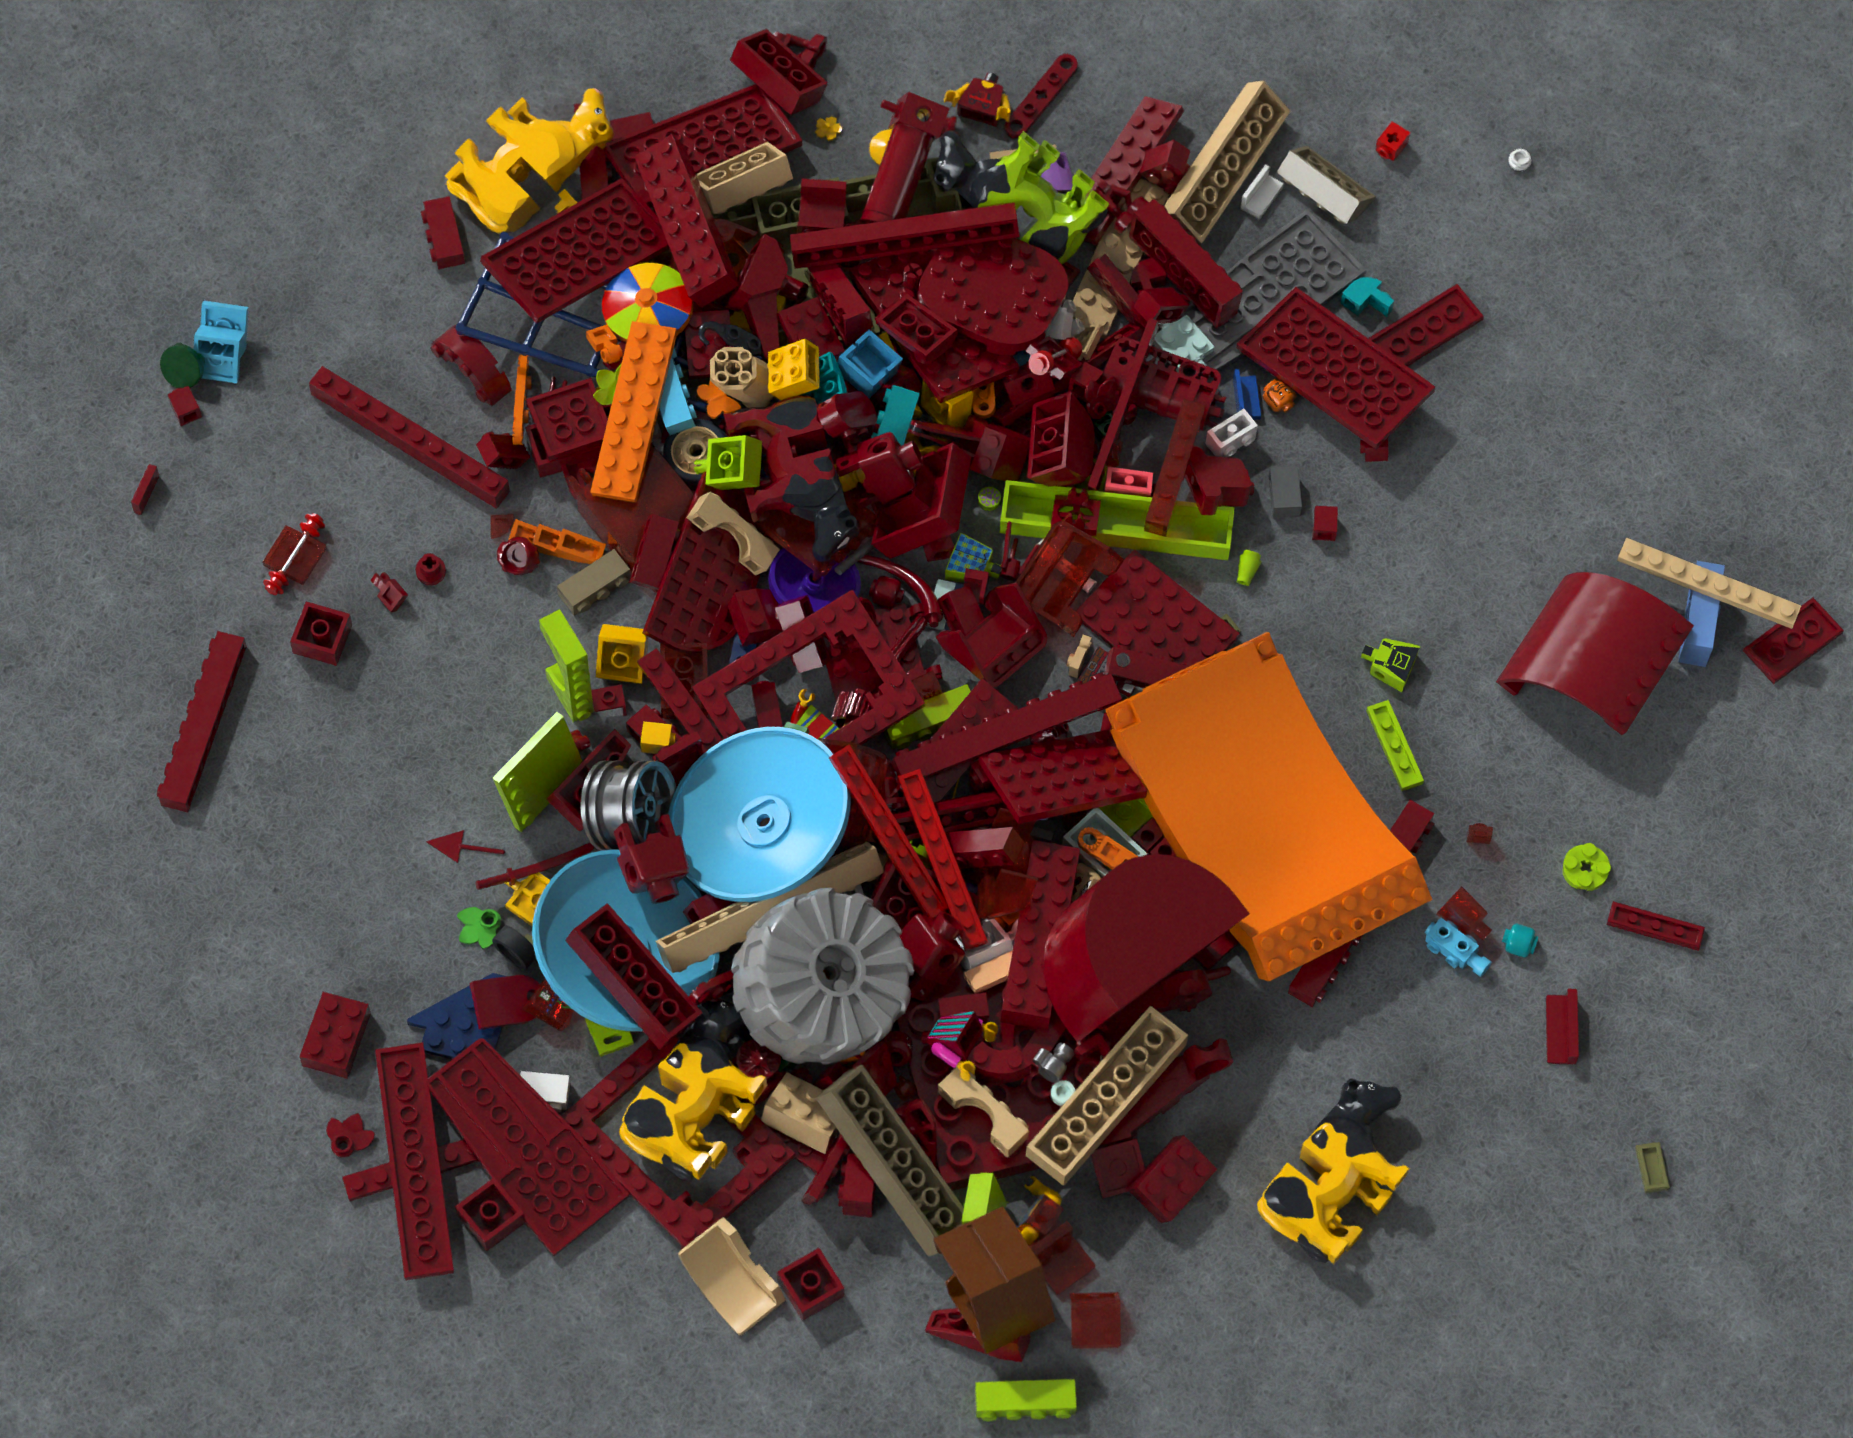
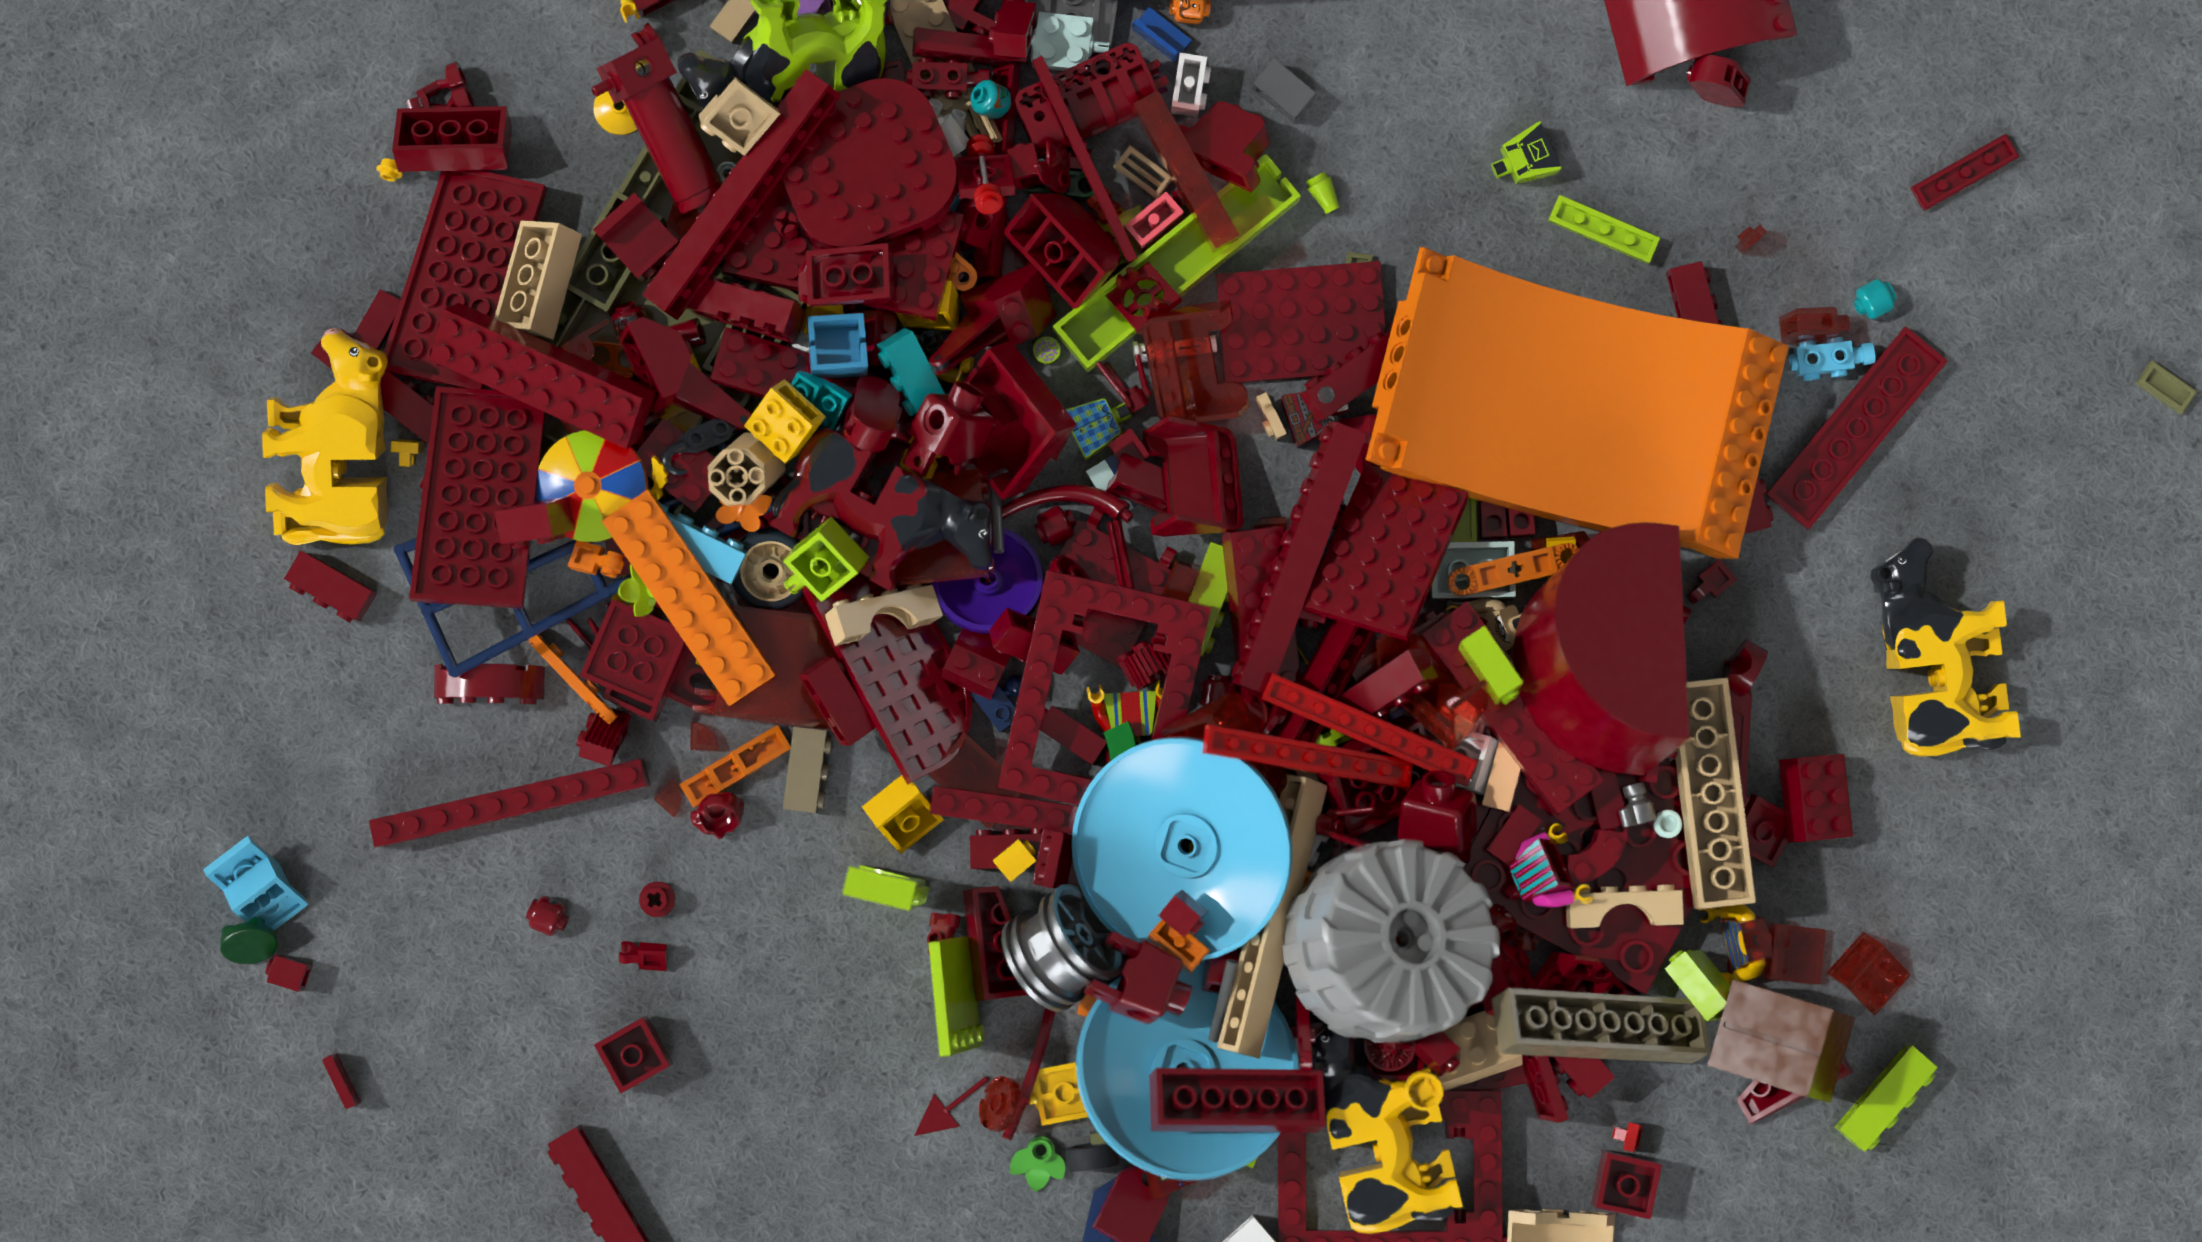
camera: 40 degrees left, 20 degrees up
(294, 554) = (530, 1006): clear red plate -> none
(359, 516) = (547, 915): none -> dark red head
(496, 866) = (1000, 1104): none -> clear red tile
(555, 511) = (702, 738): none -> clear red tile
(596, 283) = (540, 521): none -> dark red brick
(608, 699) = (934, 863): dark red bracket -> none
(690, 335) = (659, 477): none -> yellow piece
(691, 918) = (1222, 1001): none -> dark grey bar
(700, 865) = (1188, 949): none -> orange slope
(719, 846) = (1183, 914): none -> dark red brick
(723, 58) = (388, 170): none -> yellow plate
(748, 1076) = (1423, 1090): none -> yellow wheel
(781, 1074) = (1438, 1053): none -> dark red brick
(828, 128) = (546, 144): yellow plant -> none
(844, 1262) = (1631, 1136): none -> red tile
(859, 887) = (1332, 826): none -> dark red plant
(947, 188) = (738, 117): none -> tan plate
(1051, 882) = (1491, 665): none -> lime brick
(1092, 308) = (939, 81): none -> dark red brick
(1105, 330) = (990, 99): none -> teal head
(1150, 441) = (1124, 159): none -> tan tile
(1247, 1001) = (1714, 581): none -> dark red plate
(1325, 523) = (1347, 85): dark red panel -> none
(1429, 1001) = (1856, 428): none -> dark red plate
(1552, 722) = (1719, 80): none -> dark red brick
(1562, 1028) = (1981, 340): dark red panel -> none
(1590, 855) = (1873, 168): lime plate -> none

